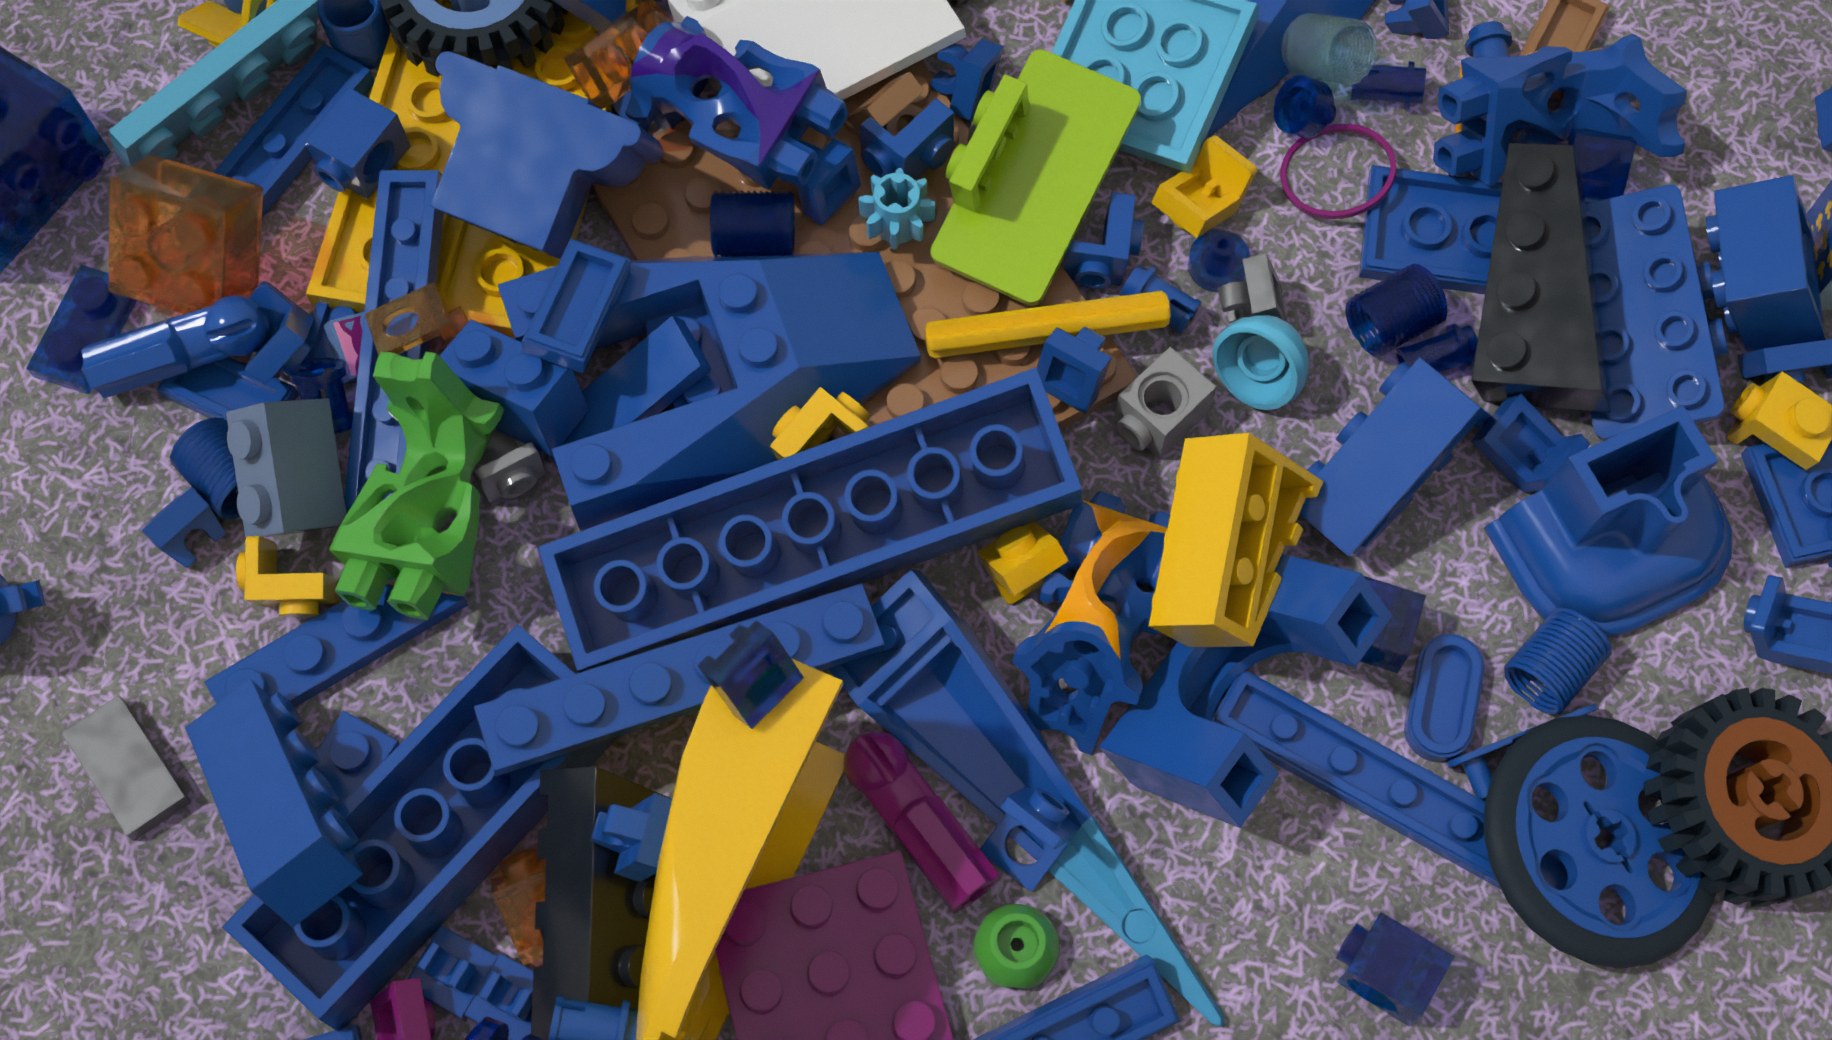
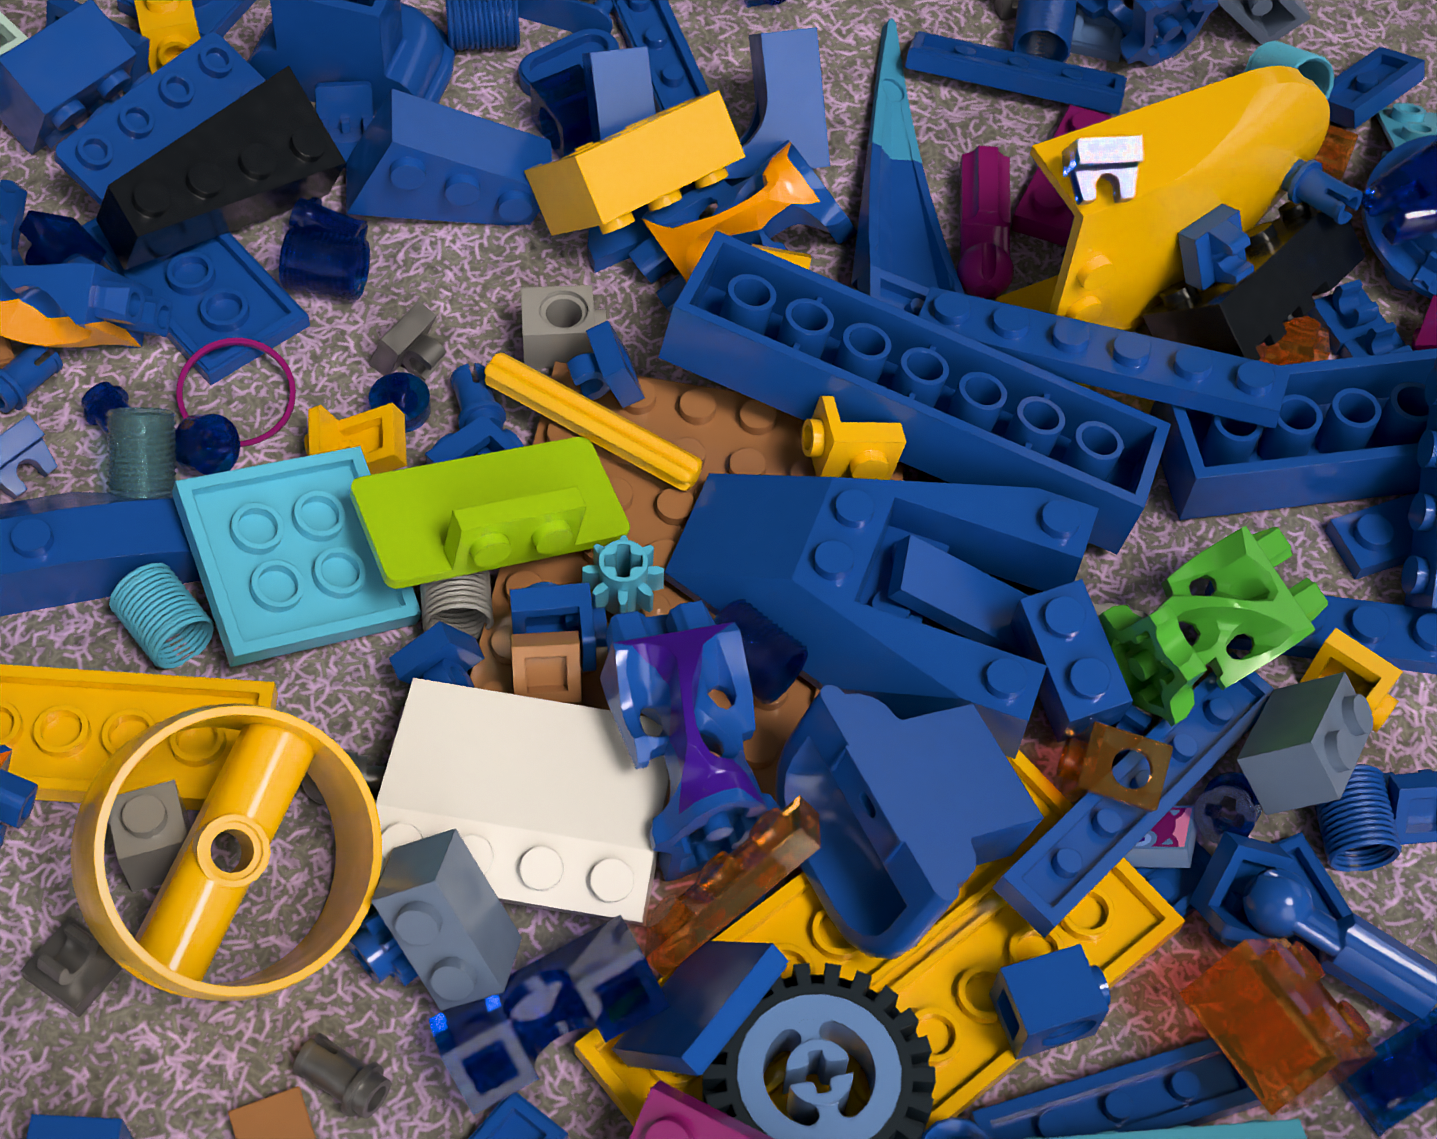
camera: 145 degrees left, 10 degrees down
(576, 305) = (980, 632): blue tile -> none
(1016, 968) = (982, 124): bright green plate -> none
(1045, 819) = (914, 145): blue bracket -> none
(1261, 361) = (458, 293): medium azure piece -> none

